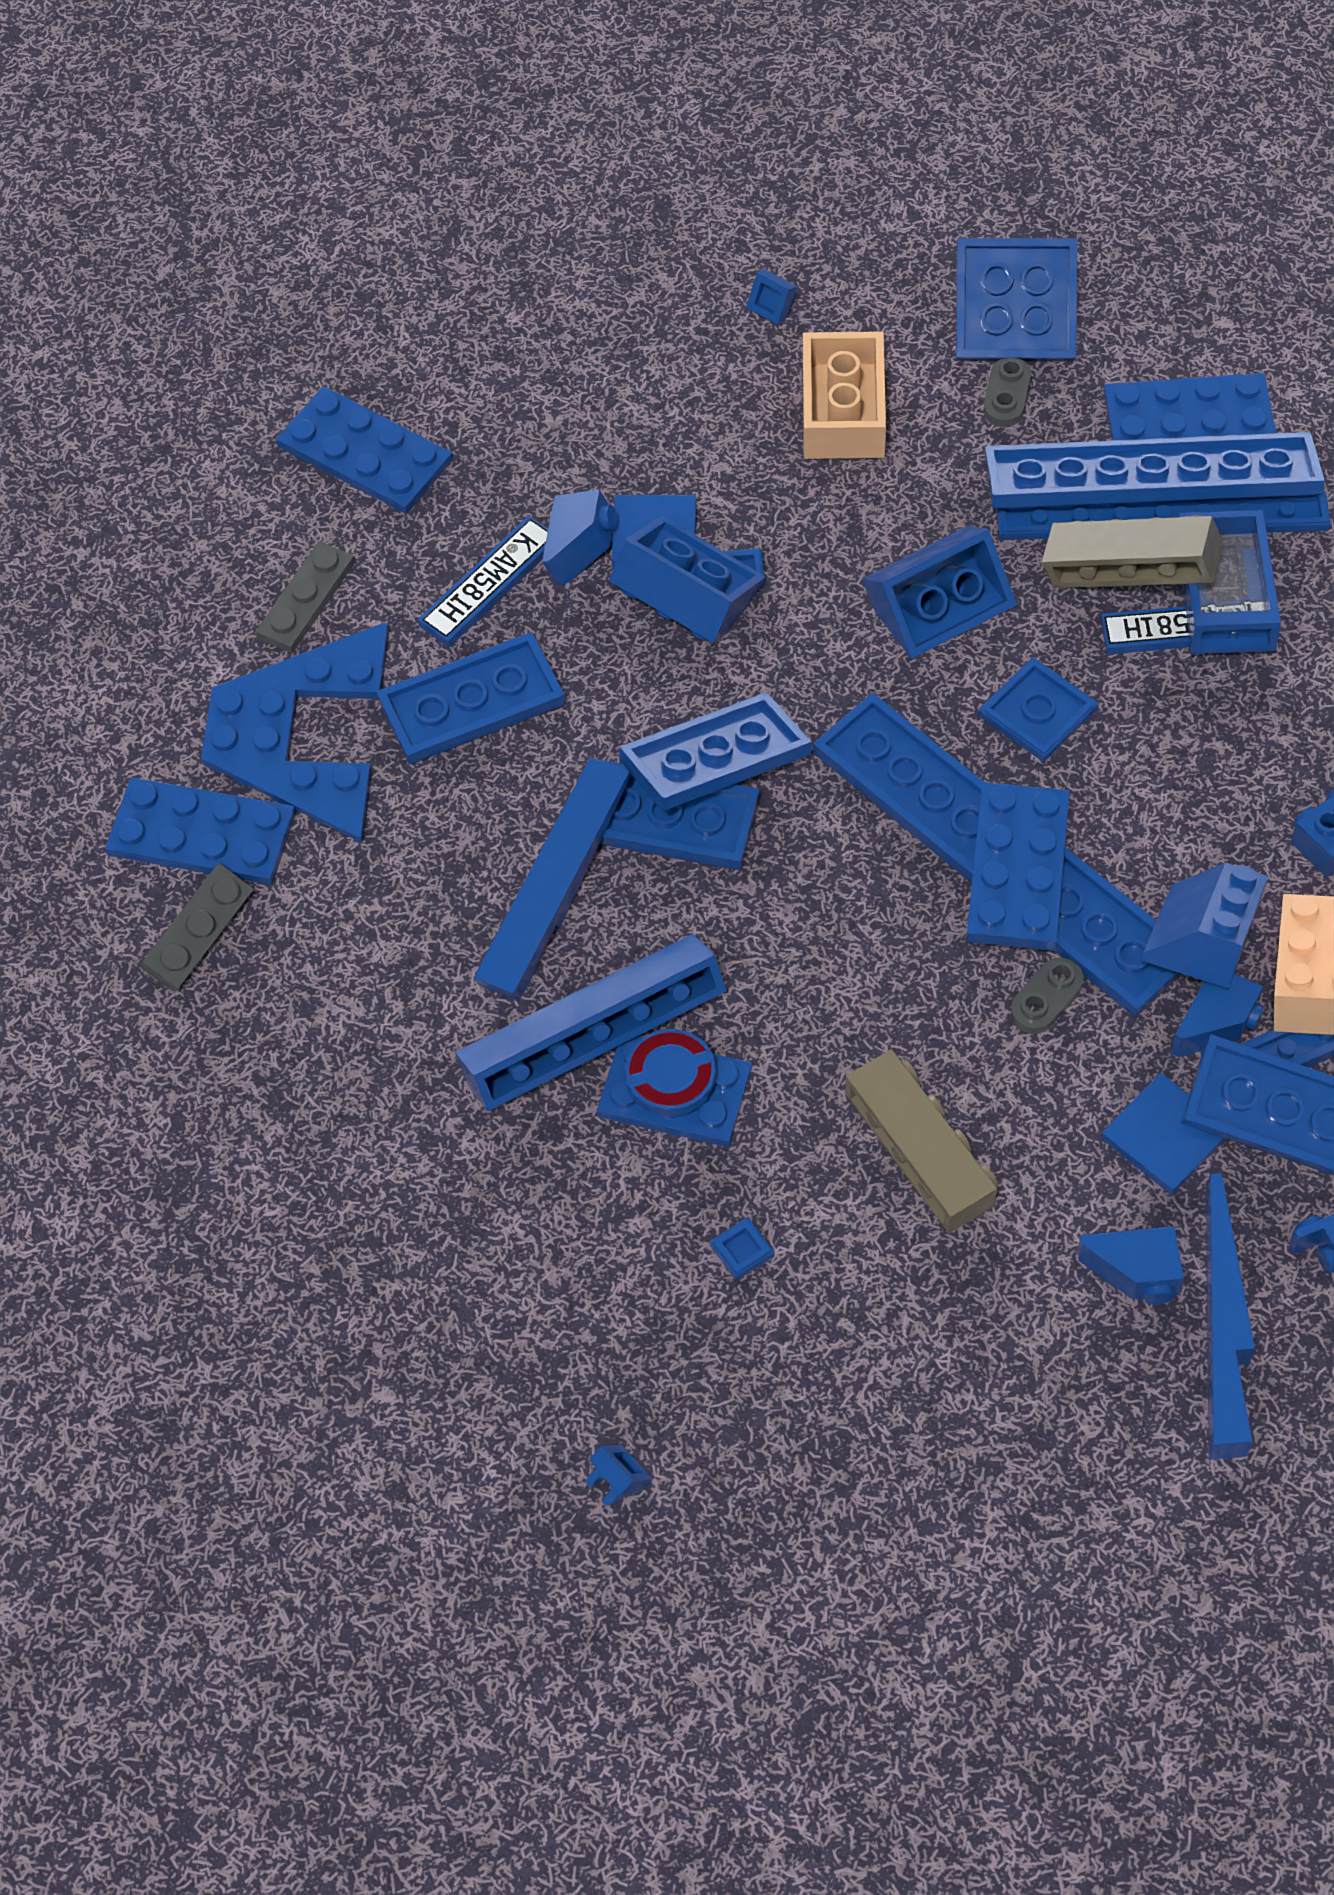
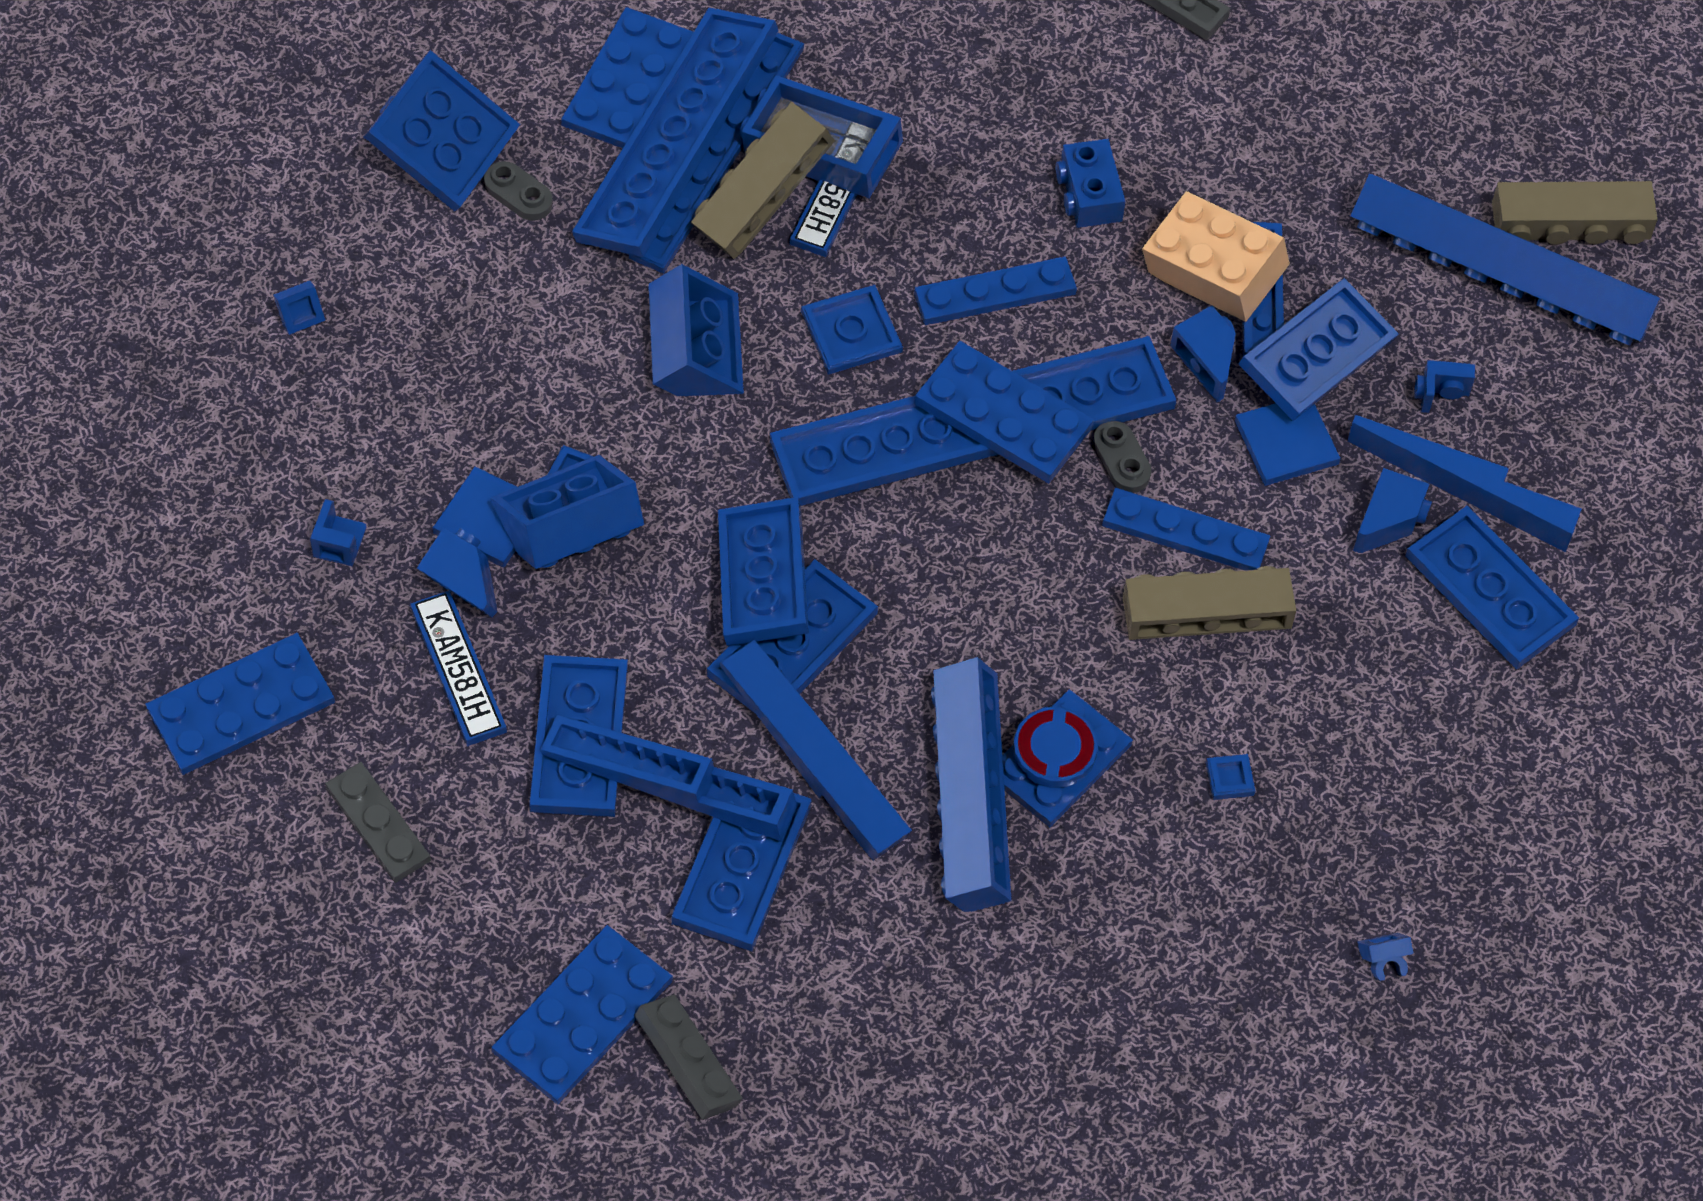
camera: 70 degrees left, 0 degrees up
(253, 726) = (499, 926): blue wing -> none
(414, 879) = (736, 880): none -> blue plate
(459, 782) = (673, 776): none -> blue slope
(564, 430) = (336, 537): none -> blue panel
(843, 395) = (452, 303): light nougat brick -> none
(998, 1089) = (1185, 530): none -> blue plate
(1110, 1400) = (1492, 587): none -> blue plate
(1164, 804) = (995, 290): none -> blue plate
(1207, 923) = (1138, 309): blue slope -> none

